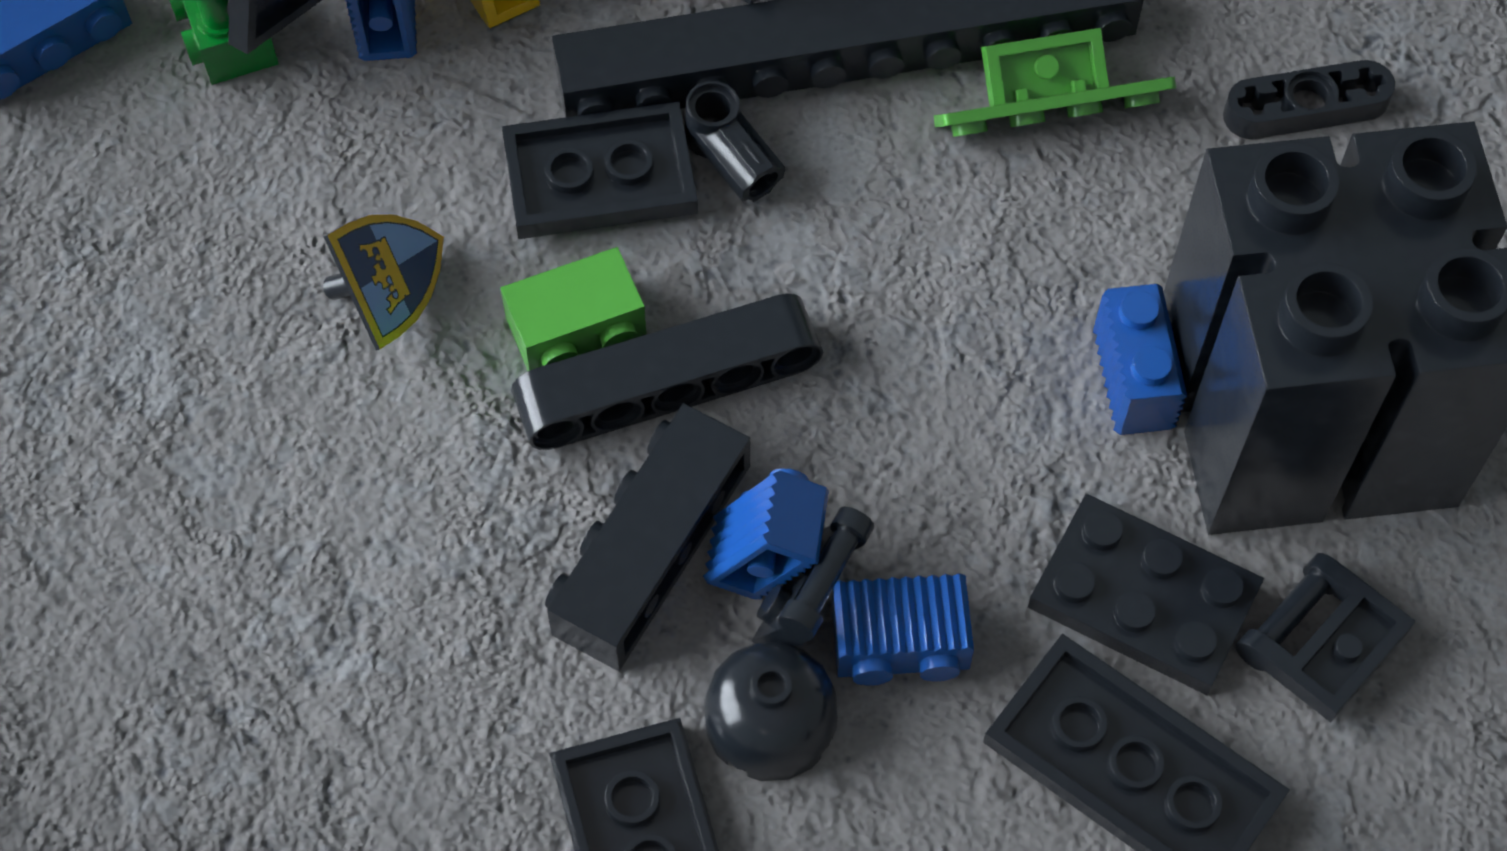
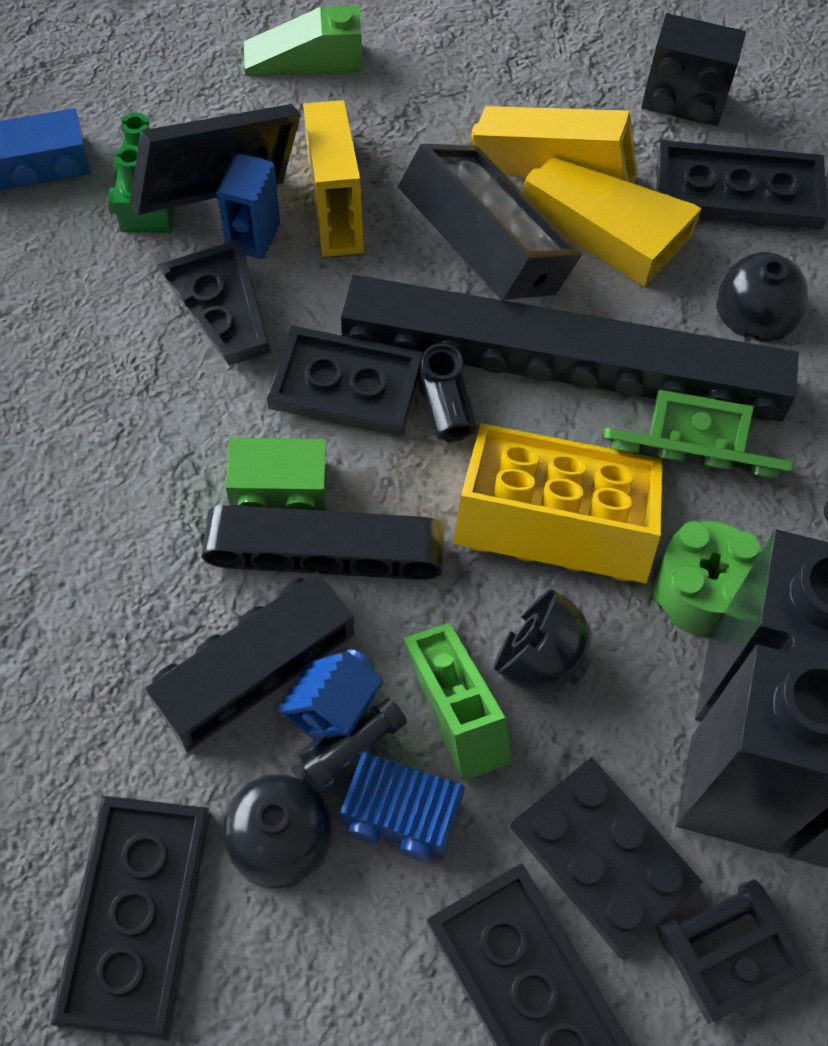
camera: 20 degrees right, 0 degrees up
(386, 269) = (161, 397): shield -> none
(393, 125) = (221, 299): none -> black wing
(913, 488) = (460, 702): none -> bright green slope
(925, 222) = (561, 503): none -> yellow slope
(986, 388) = (547, 647): none -> black cylinder
(1124, 234) = (703, 573): none -> bright green brick
(1139, 359) = (677, 668): blue brick -> none

